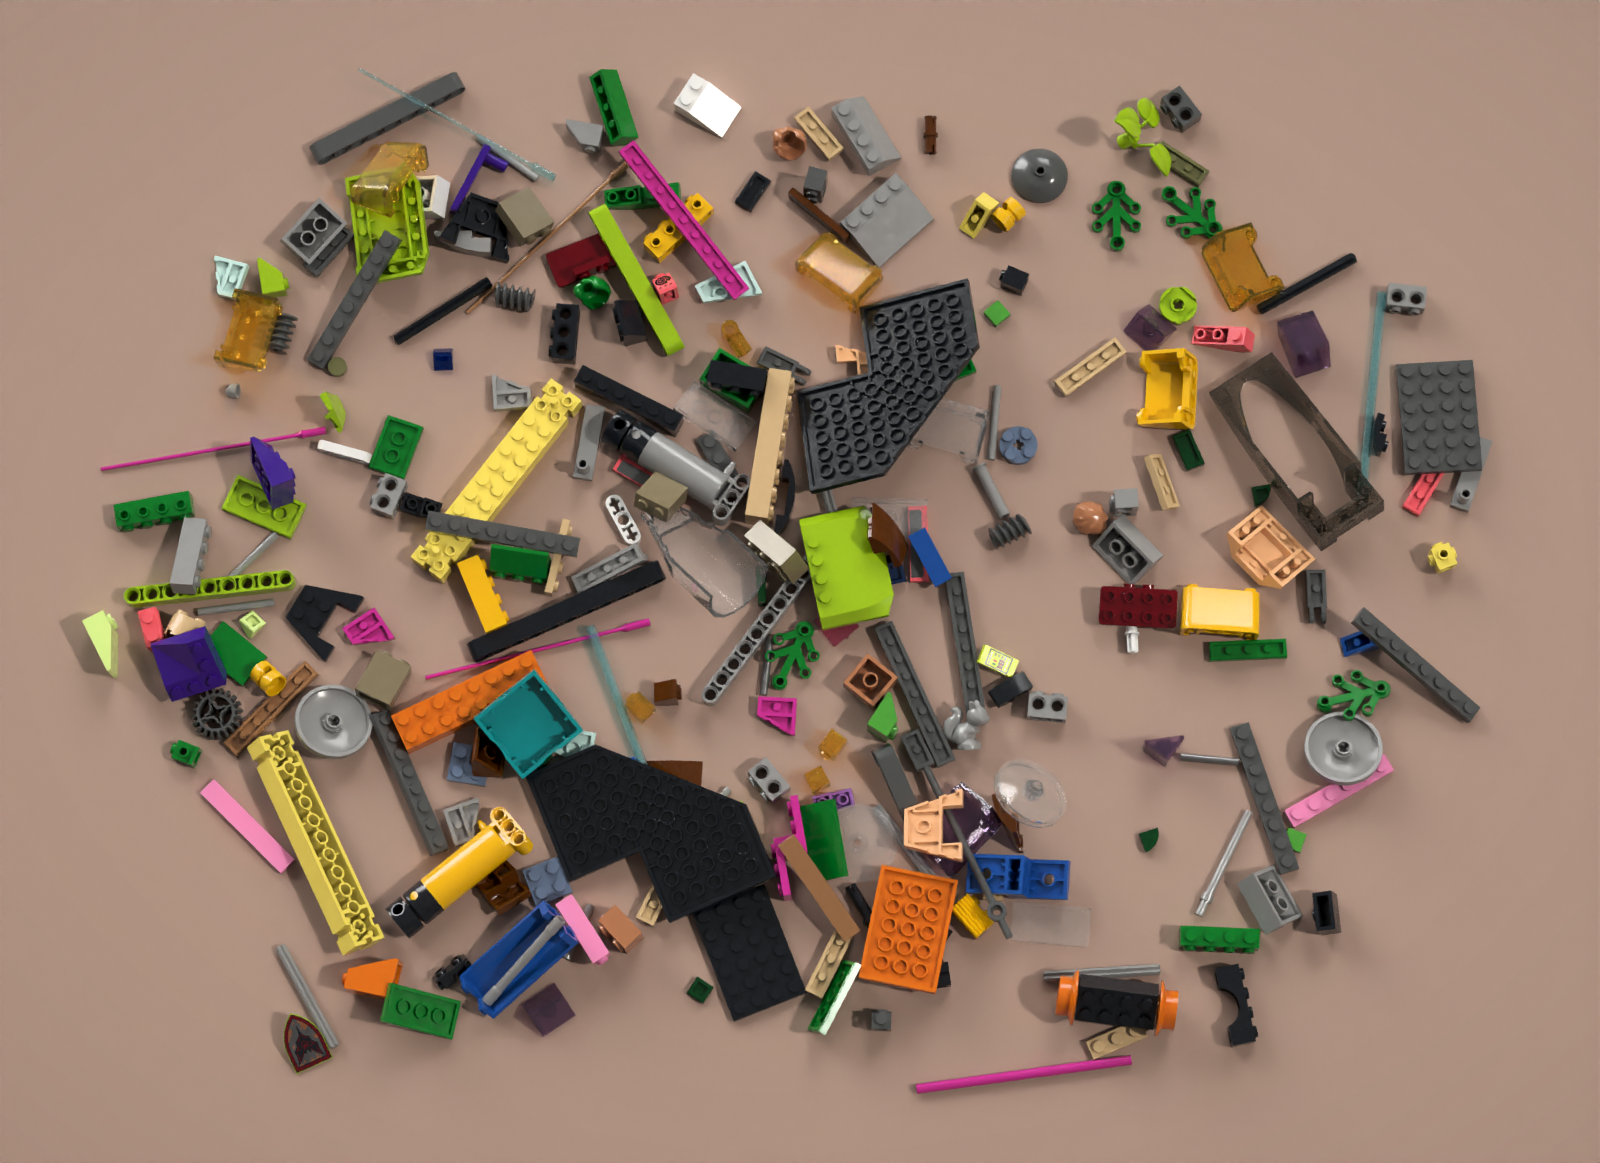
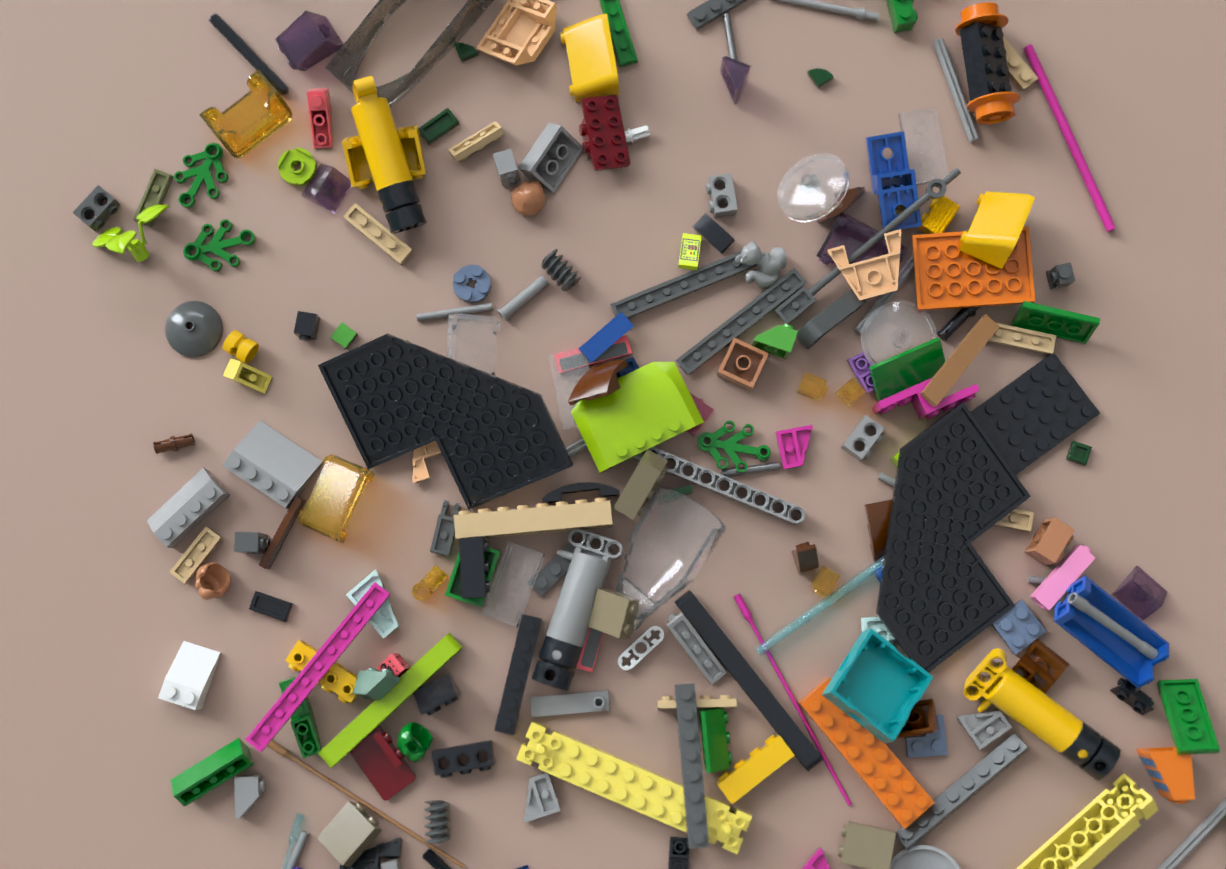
camera: 105 degrees left, 5 degrees up
(654, 266) = (374, 684): none -> sand green slope
(945, 961) = (996, 226): none -> yellow windscreen
(1158, 387) = (386, 157): none -> yellow piece

